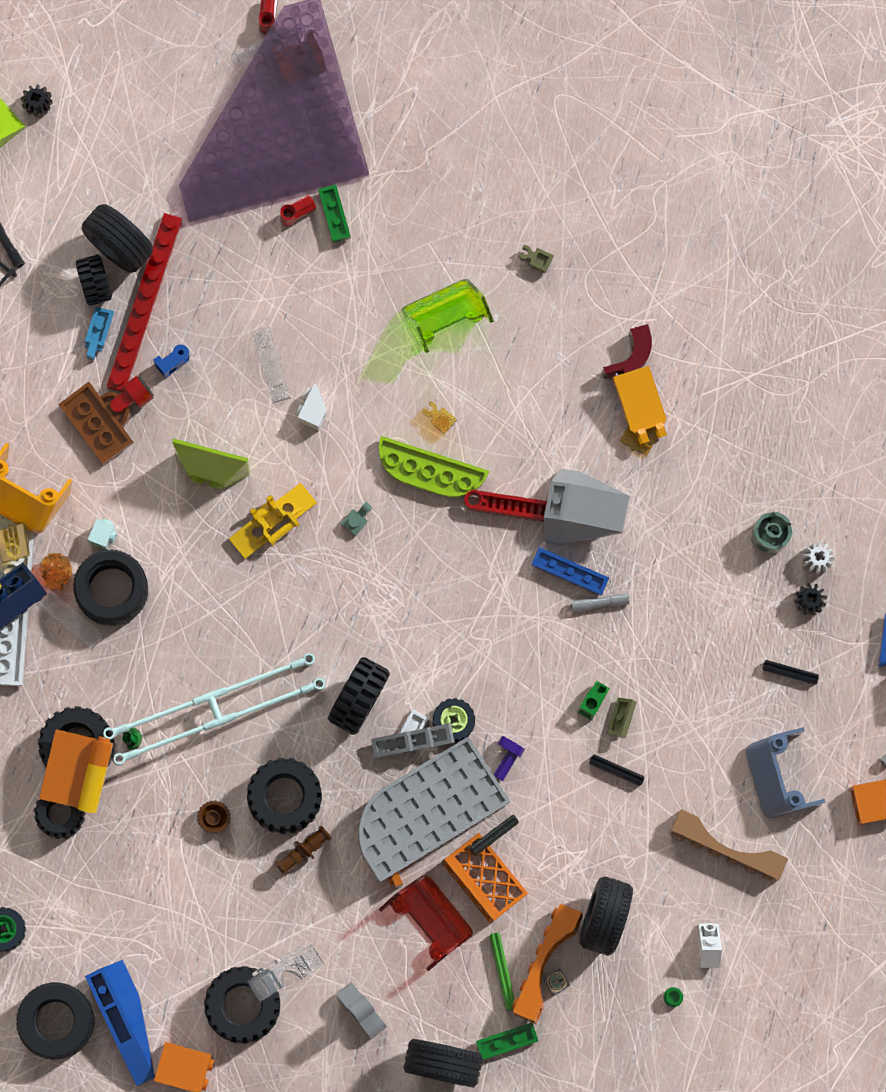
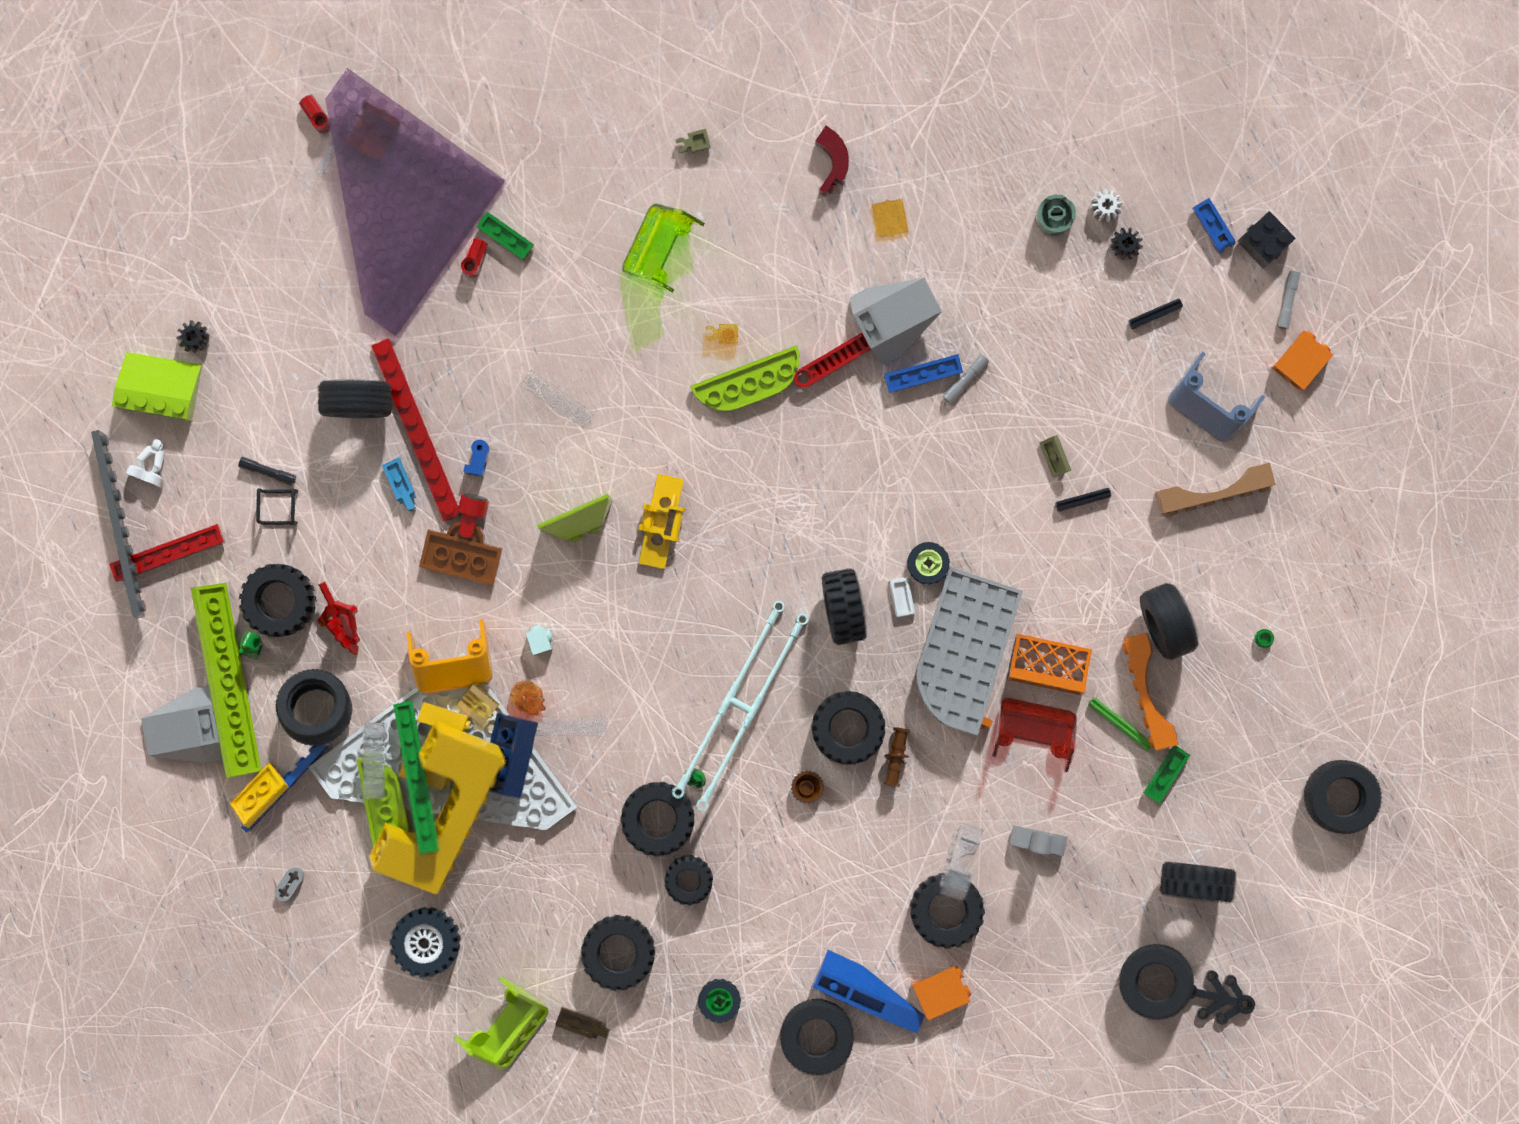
camera: 25 degrees left, 10 degrees up
(76, 770) = (677, 840): orange door -> none
(93, 280) = (363, 446): black tyre -> none
(110, 560) = (555, 686): black tyre -> none
(314, 410) = (621, 408): white slope -> none
(355, 520) = (725, 470): sand green plate -> none
(412, 740) = (911, 605): light grey slope -> none
(443, 1063) = (1135, 832): black tyre -> none
(493, 835) = (1031, 625): pearl dark grey axle -> none
(513, 751) = (993, 549): dark purple piece -> none
(556, 982) = (1167, 698): tile -> none
(593, 700) = (1023, 460): green leg -> none
(641, 403) = (871, 194): light orange tile -> none
(709, 945) = (1261, 577): white slope -> none

